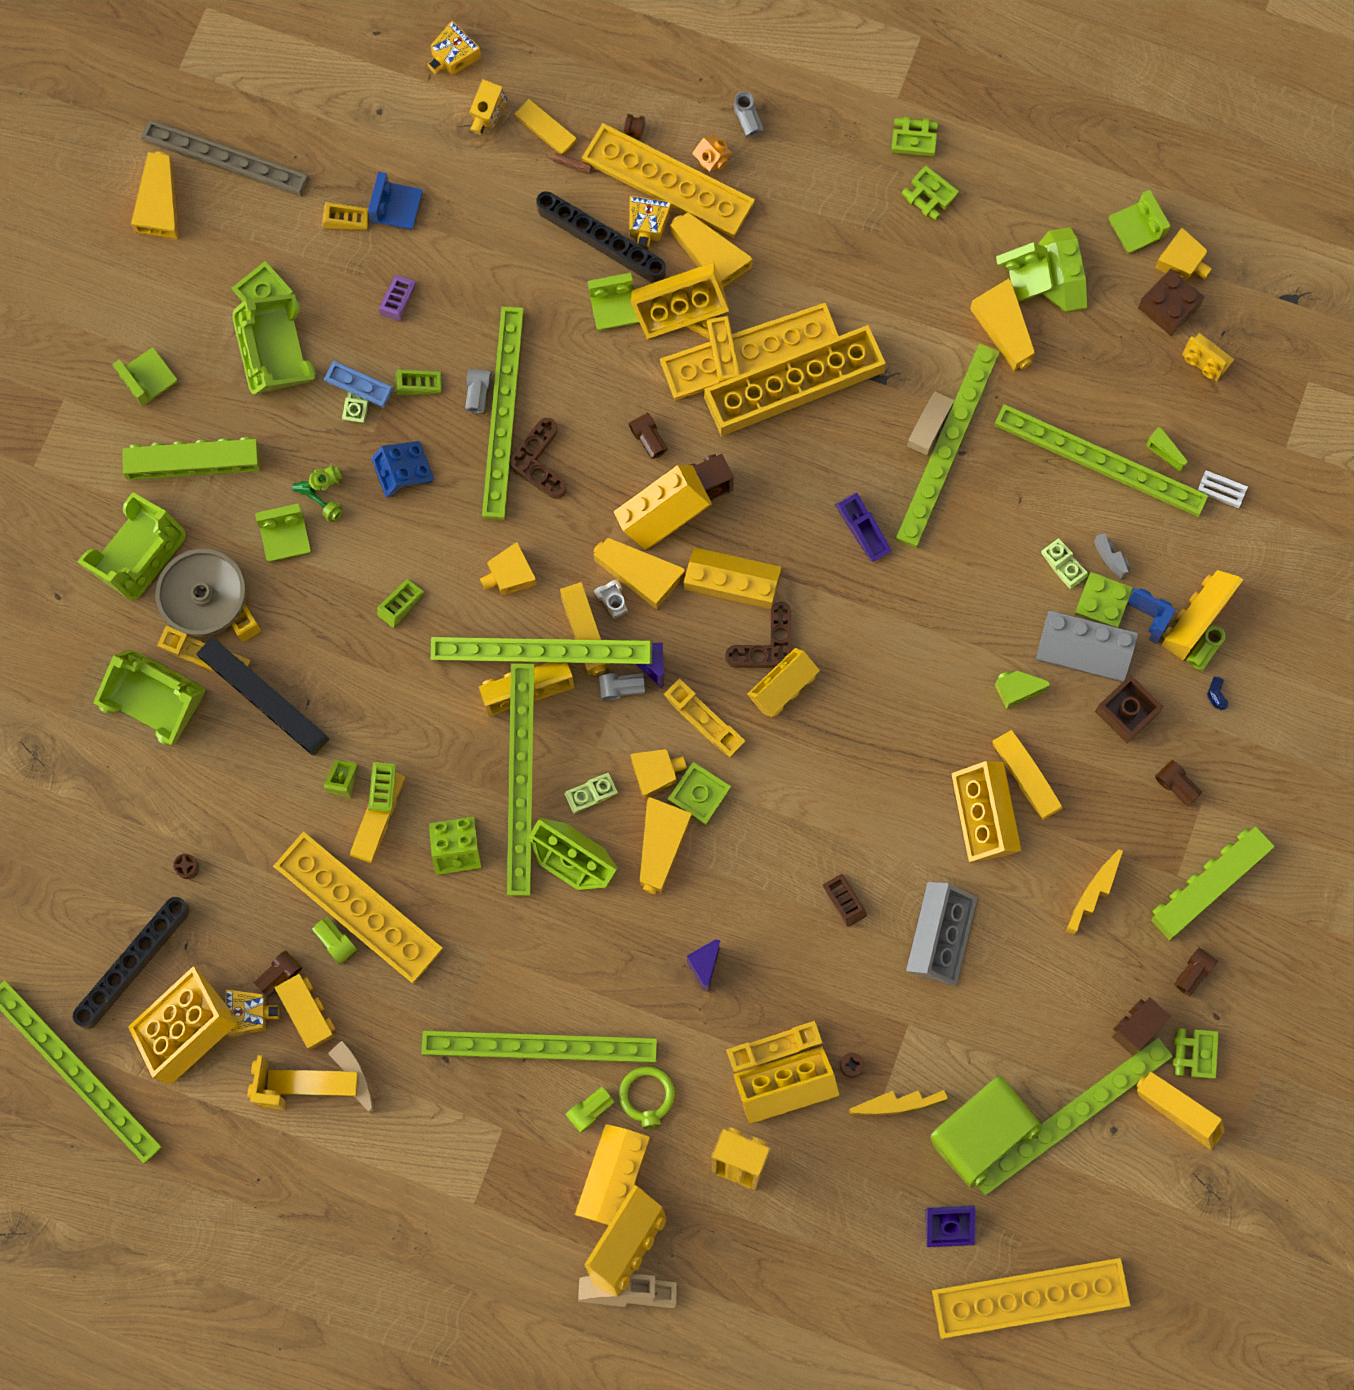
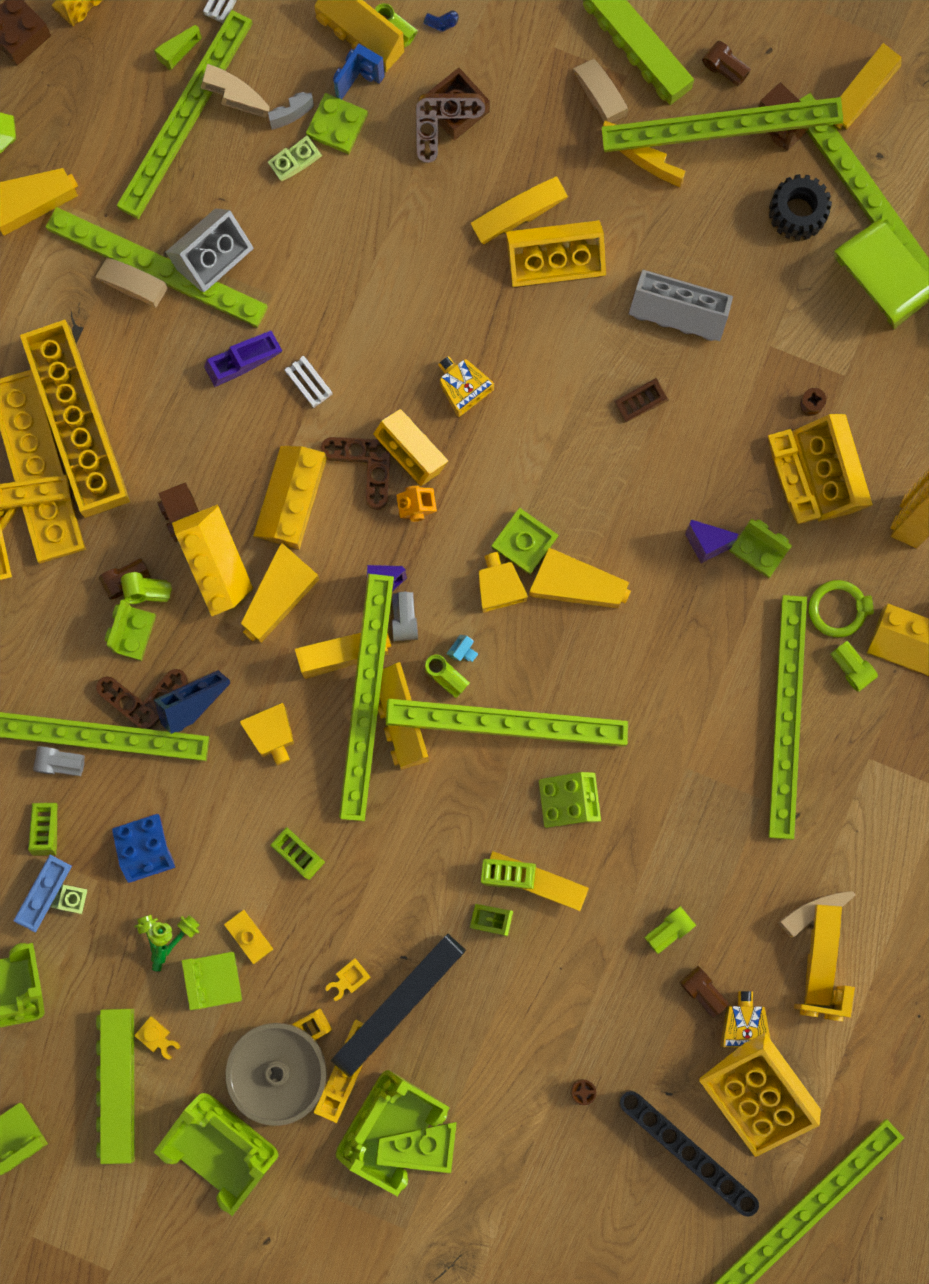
camera: 90 degrees left, 5 degrees up
(134, 721) = (420, 1150): none -> lime wing
(235, 490) = (154, 1035): none -> yellow plate
(288, 655) = (350, 977): none -> yellow plate
(305, 1011) = (746, 961): yellow brick -> none
(324, 564) = (248, 936): none -> yellow plate
(358, 907) = (634, 905): yellow plate -> none
(533, 496) = (189, 702): none -> dark blue slope
(566, 728) = (448, 677): none -> lime piece
(571, 855) = (589, 673): lime wedge -> none
(591, 793) = (519, 654): yellowish green slope -> none
(592, 739) = (462, 649): none -> medium azure tile
(599, 441) = (129, 631): none -> lime bracket
(610, 595) = (301, 624): white plate -> none
(636, 445) = (138, 589): none -> lime piece
(700, 1014) = (761, 547): none -> lime bracket
(703, 719) = (445, 532): yellow slope -> none
(729, 689) = (416, 503): none -> light orange brick
(848, 729) = (463, 384): none -> torso
(858, 576) = (297, 366): none -> white tile
(889, 1105) = (854, 365): yellow slope -> none
(965, 489) = (210, 249): none -> light grey slope
(1019, 687) = (426, 212): lime slope -> none
(1063, 1032) = (808, 191): none -> black tyre
(1086, 646) = (385, 143): light grey slope -> none
(1112, 686) = (431, 116): none -> reddish brown beam
(1121, 961) = (722, 124): none -> lime plate
(1123, 500) = (234, 91): none -> tan slope
(1156, 848) = (601, 91): none -> tan slope
(1174, 778) = (529, 68): reddish brown piece -> none
(1204, 1053) = (808, 63): lime plate -> none

